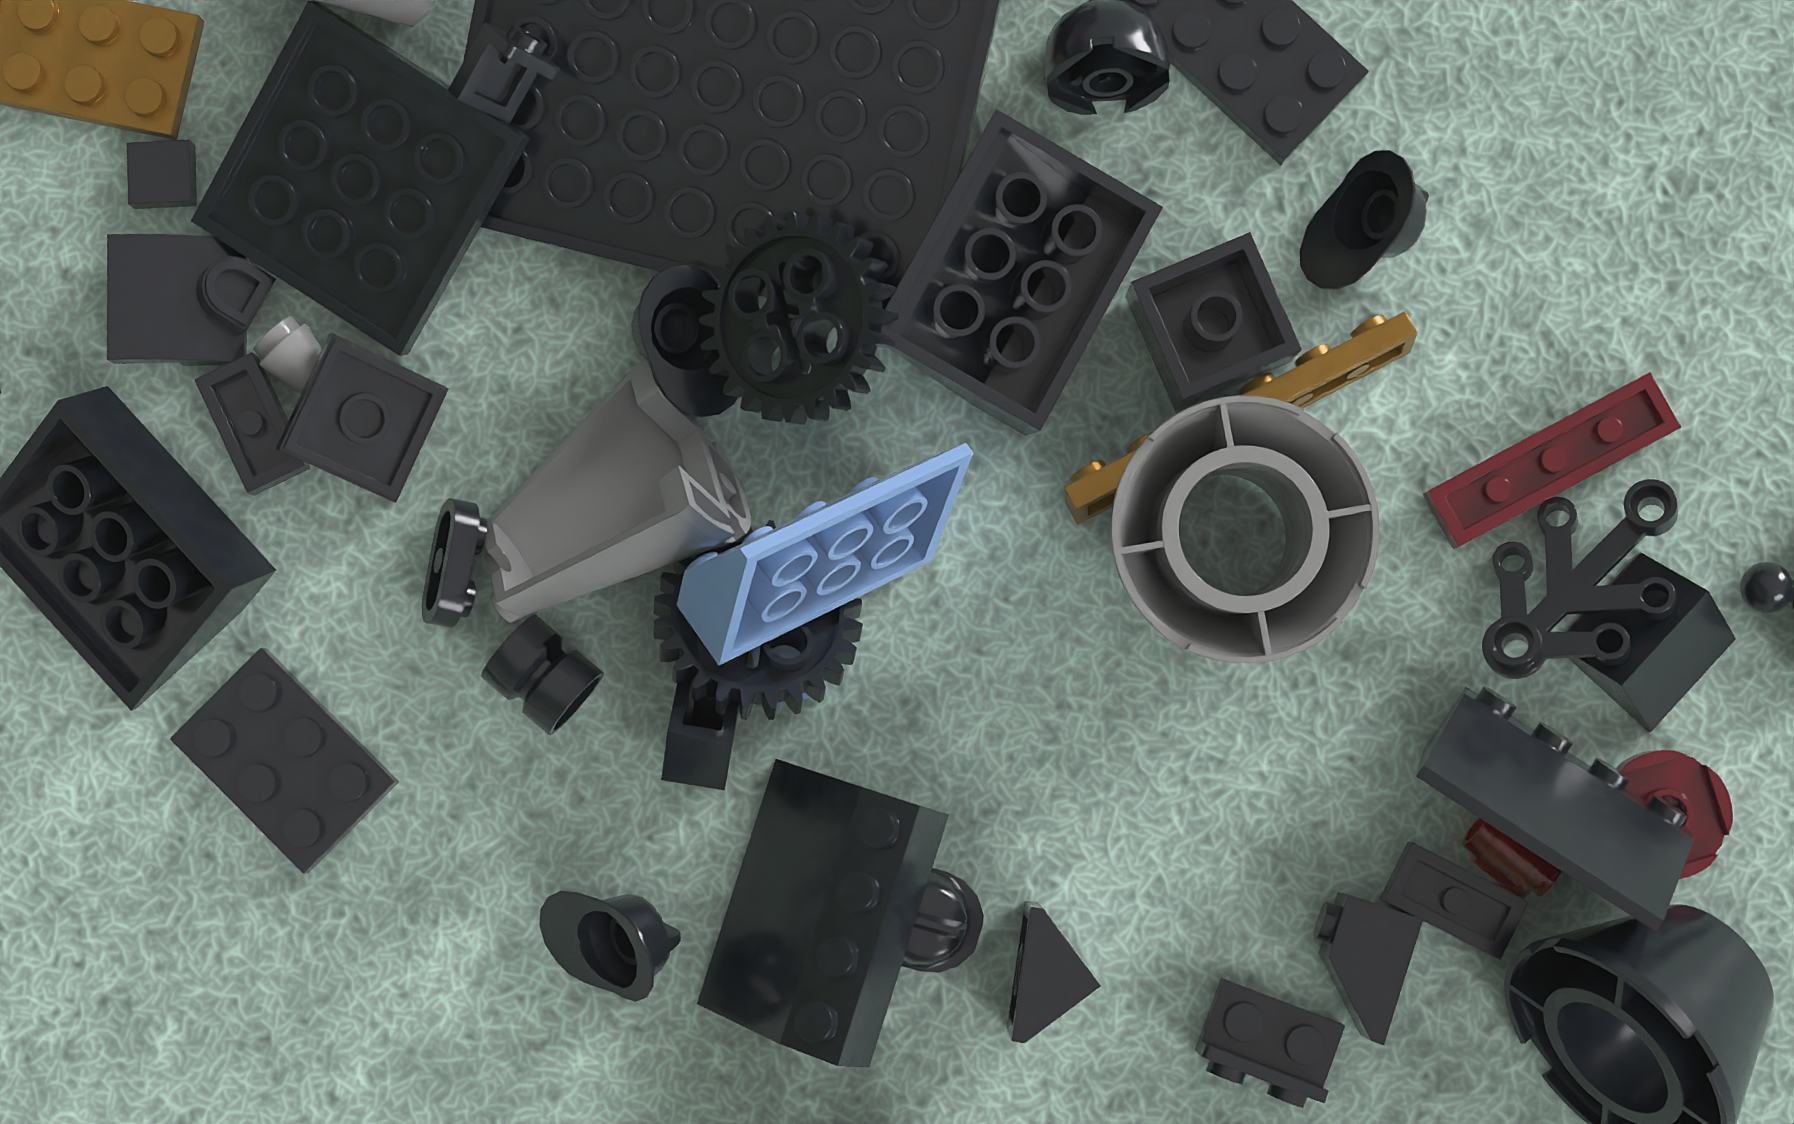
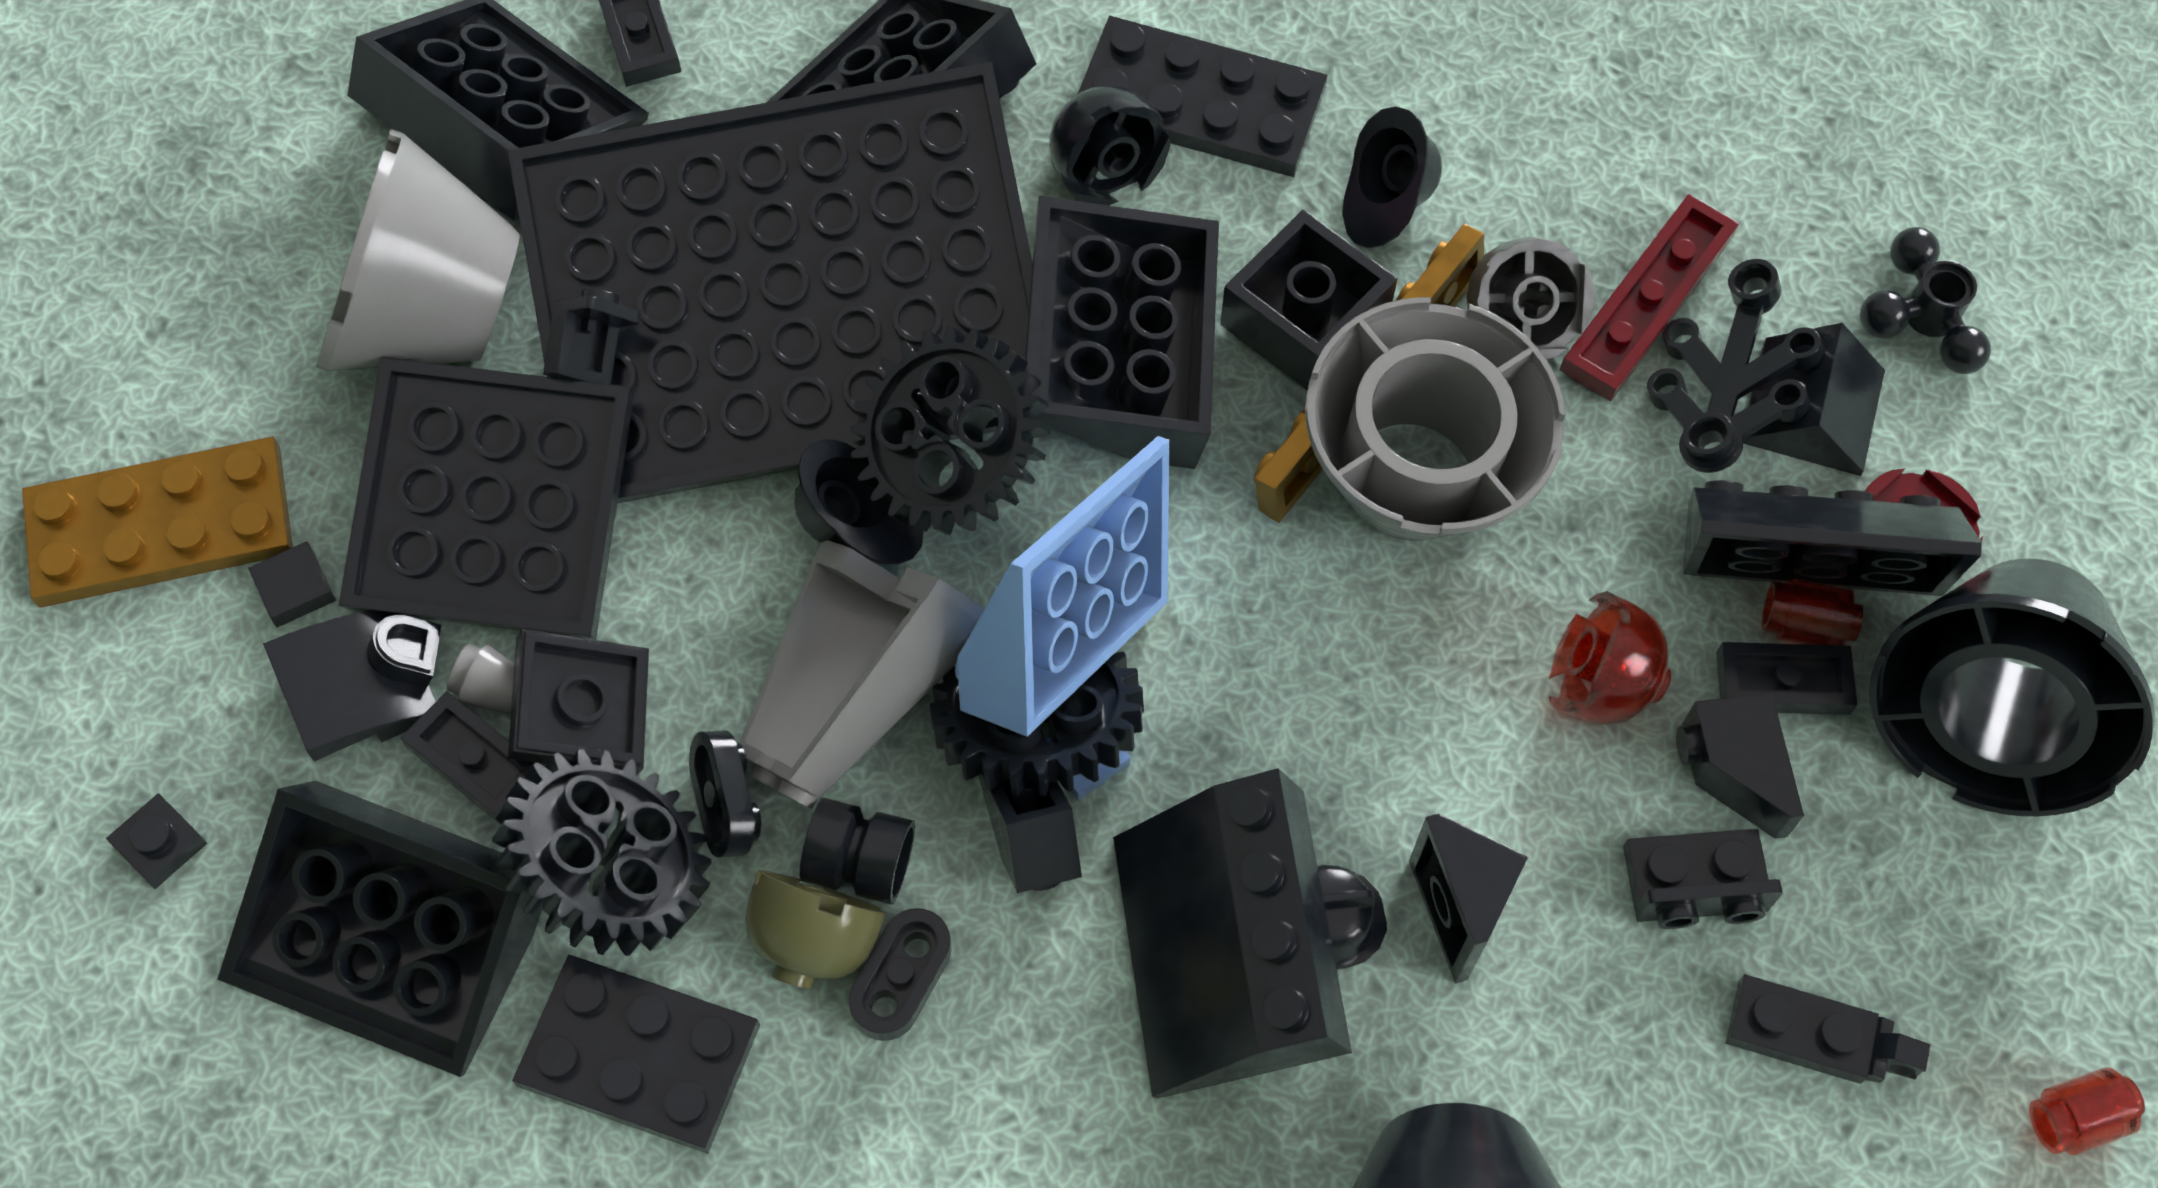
camera: 30 degrees left, 20 degrees down
(277, 542) = (557, 840): none -> black gear
(469, 727) = (809, 929): none -> olive cylinder
(532, 798) = (898, 976): none -> black plate
(608, 941) = (1035, 1068): black piece -> none
(1298, 818) = (1619, 653): none -> clear red cylinder
(1423, 421) = (1535, 289): none -> flat silver cylinder

